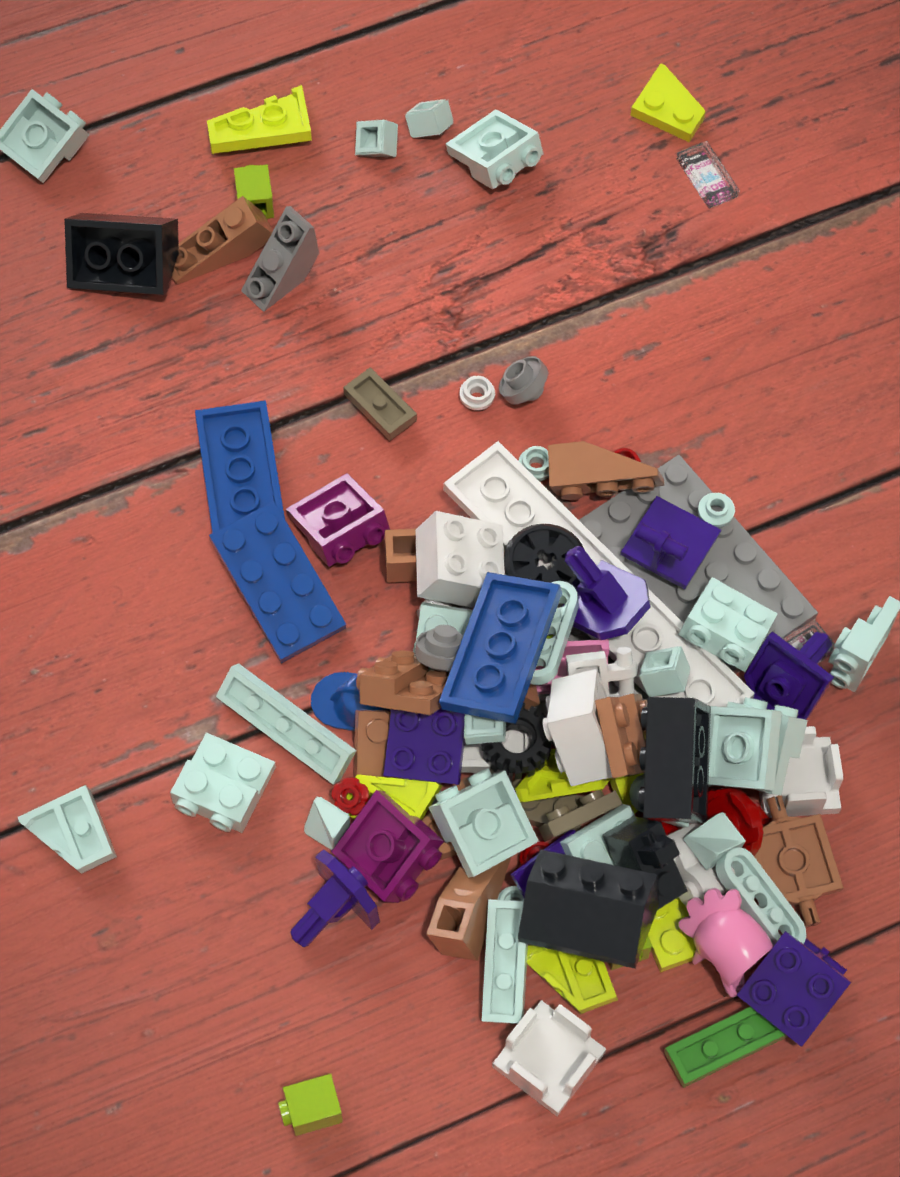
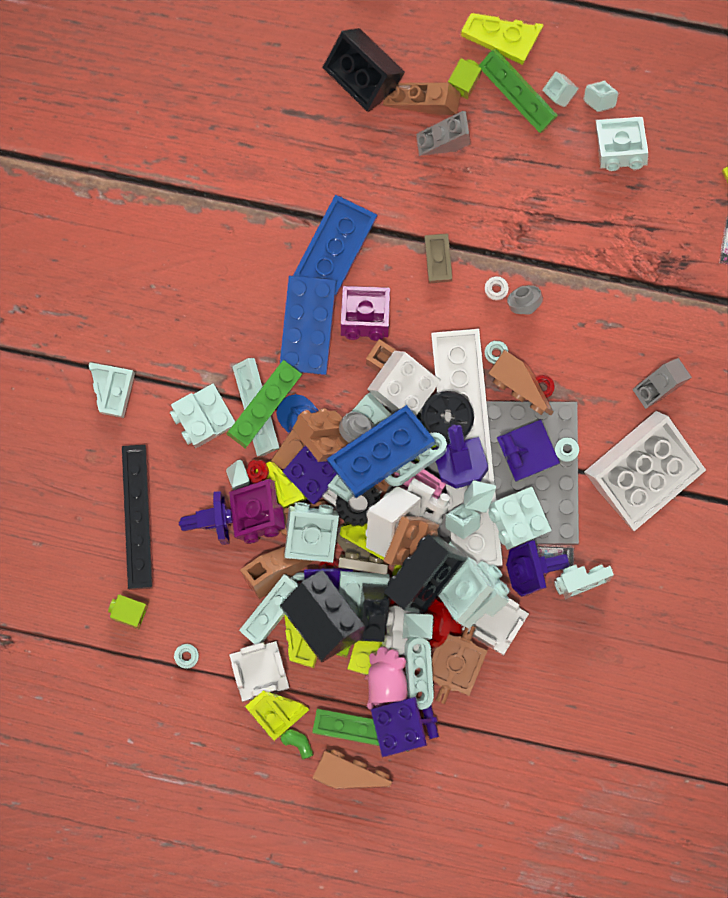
camera: 40 degrees right, 15 degrees up
(231, 972) = (137, 517): none -> black plate
(296, 707) = (264, 404): none -> bright green plate
(329, 168) = (518, 91): none -> bright green plate
(430, 1097) = (181, 650): none -> light aqua plate
(616, 1094) = (275, 712): none -> neon yellow wing
(662, 625) = (478, 496): none -> light aqua slope
(674, 1110) = (299, 740): none -> bright green arm
(759, 369) = (662, 382): none -> light grey slope
(764, 1111) = (342, 774): none -> nougat slope
(823, 475) = (645, 470): none -> white slope

